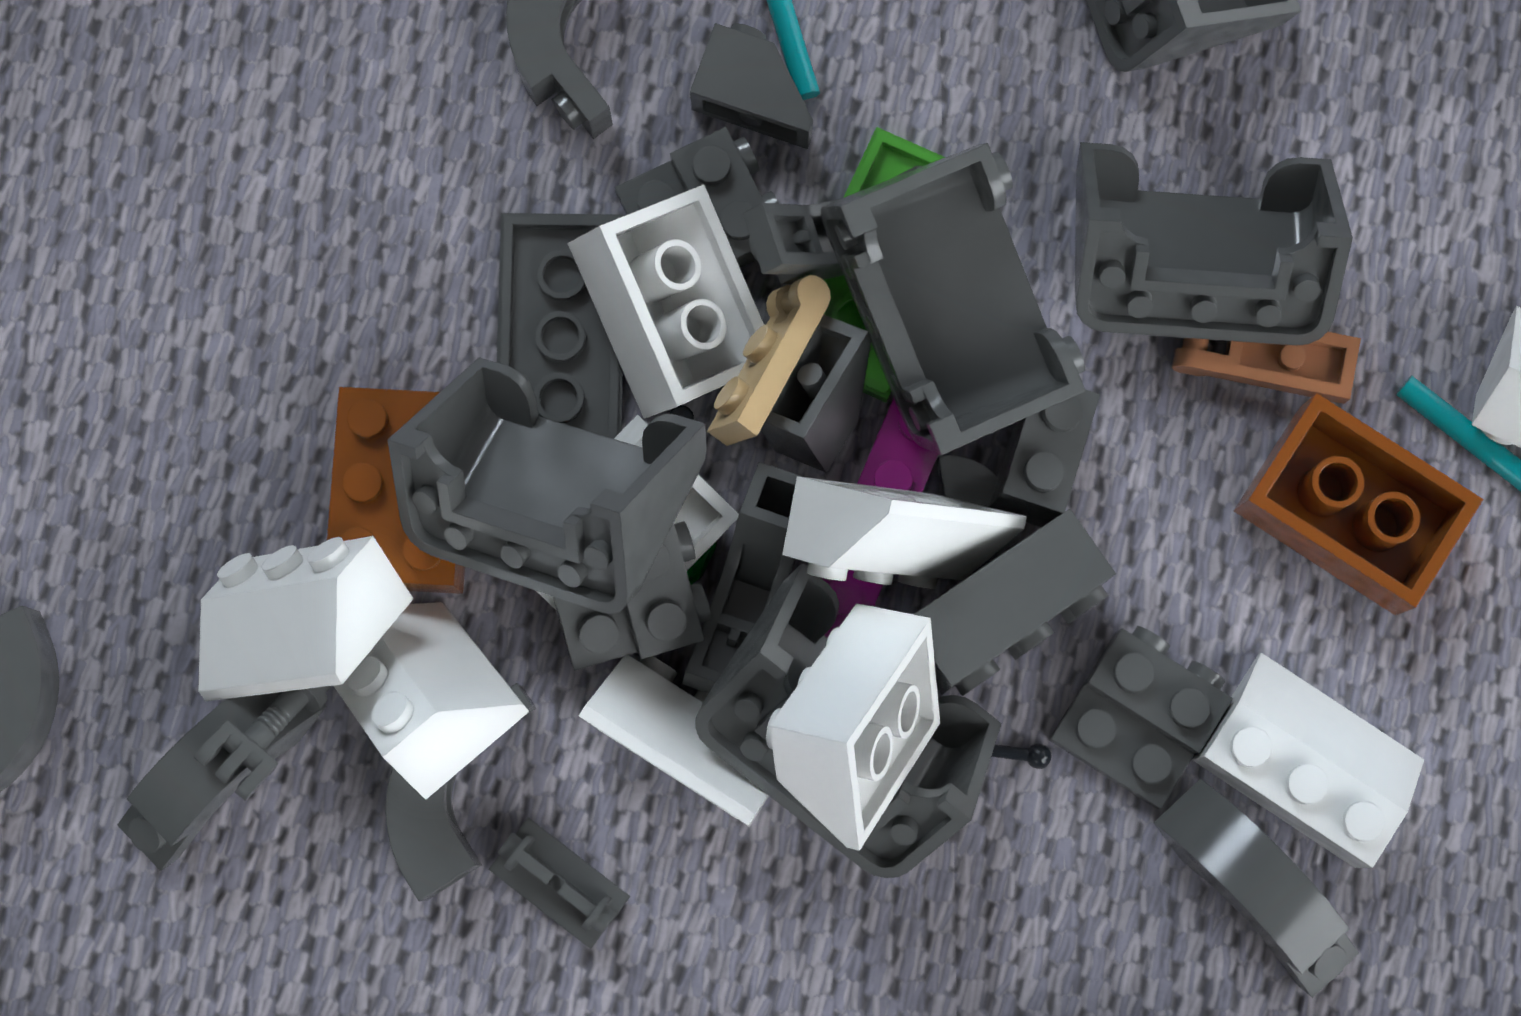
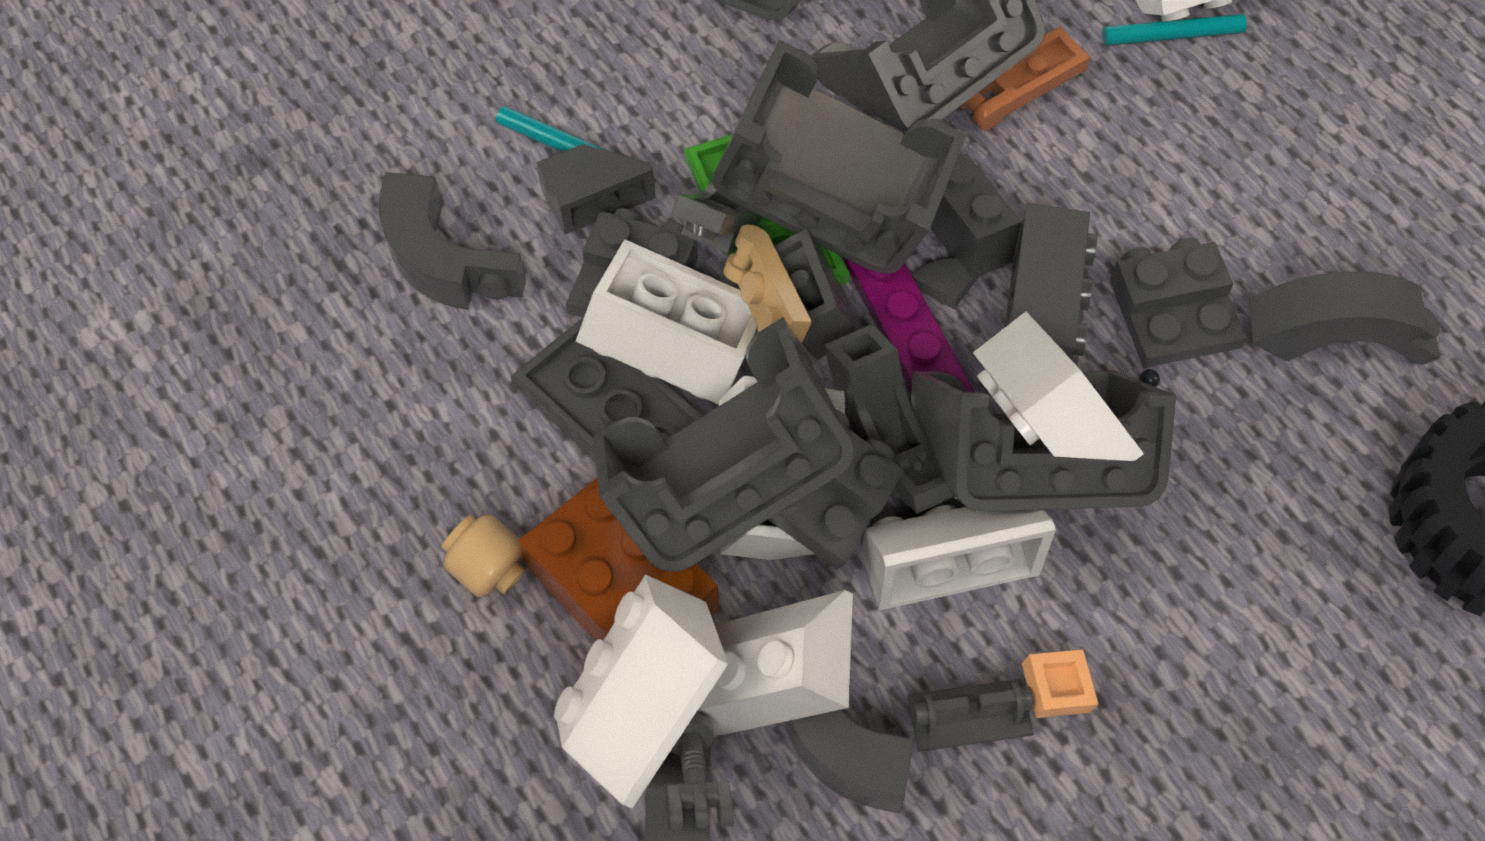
camera: 45 degrees left, 20 degrees down
(315, 362) = (483, 555): none -> tan head
(642, 936) = (1060, 683): none -> light nougat tile
(892, 533) = (945, 302): white slope -> none
(1312, 763) = (1295, 242): white slope -> none
(1358, 505) = (1158, 97): dark orange brick -> none

